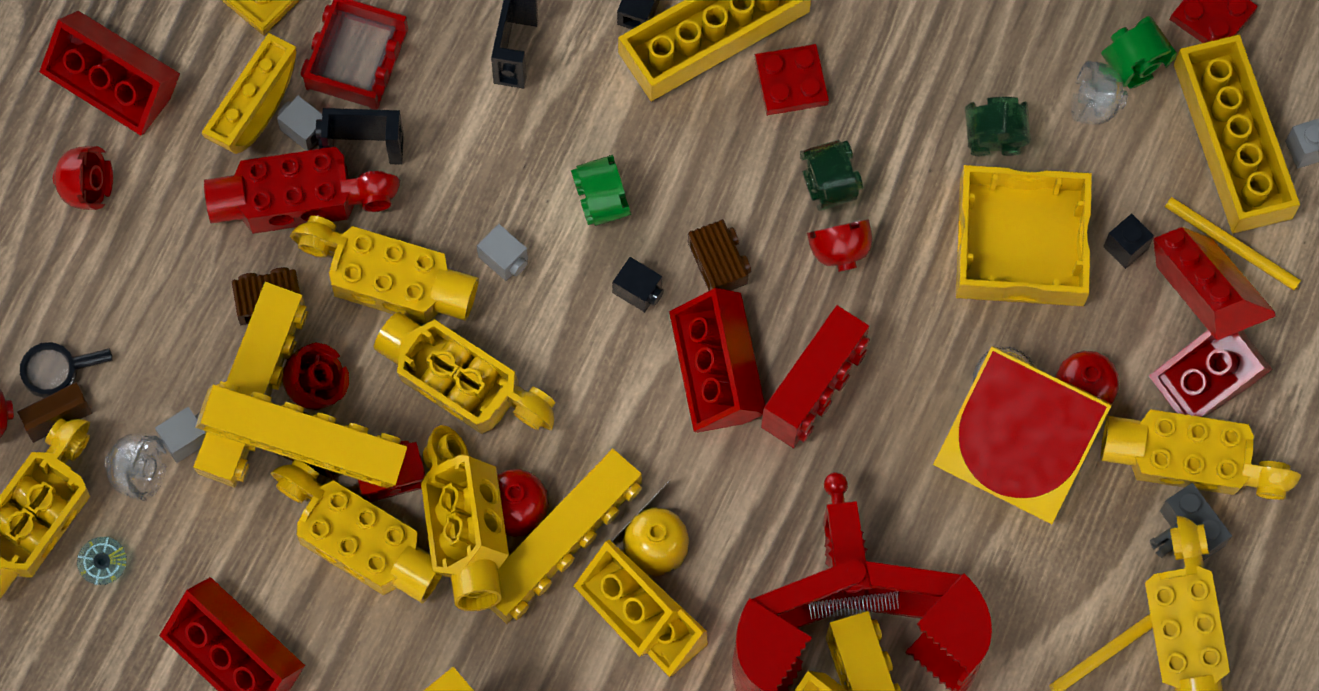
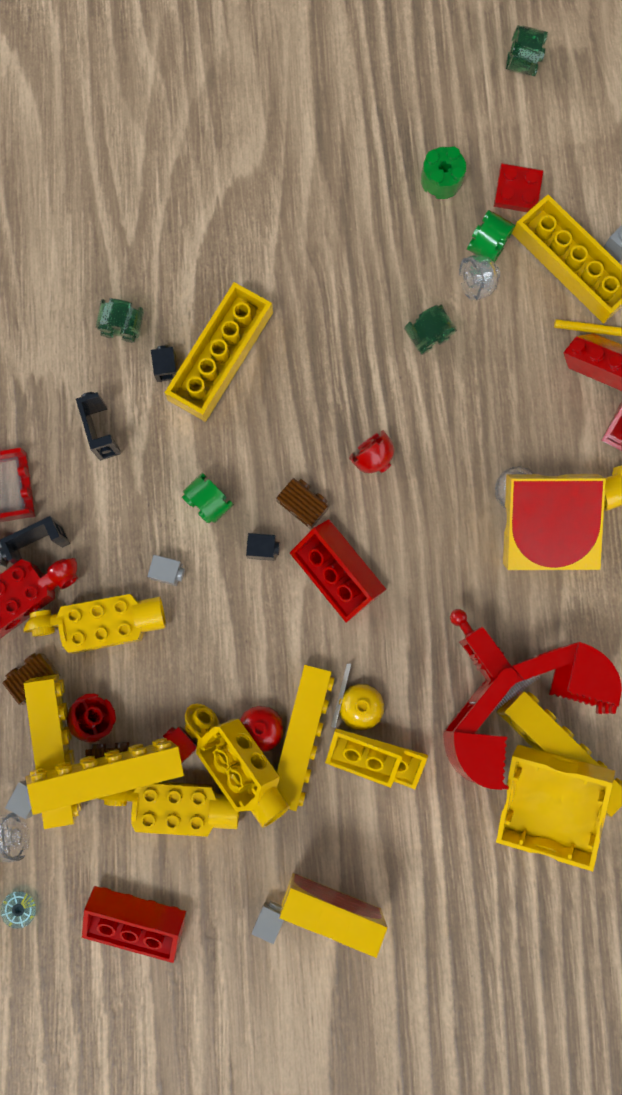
camera: 25 degrees left, 10 degrees up
(460, 375) = (181, 667): yellow brick -> none
(791, 79) = (285, 362): red plate -> none
(815, 377) = (405, 550): red brick -> none
(831, 174) = (344, 413): clear green brick -> none
(1023, 236) = (482, 390): yellow tile -> none
(1091, 373) = (568, 459): red cylinder -> none
(1128, 241) = (547, 361): black brick -> none

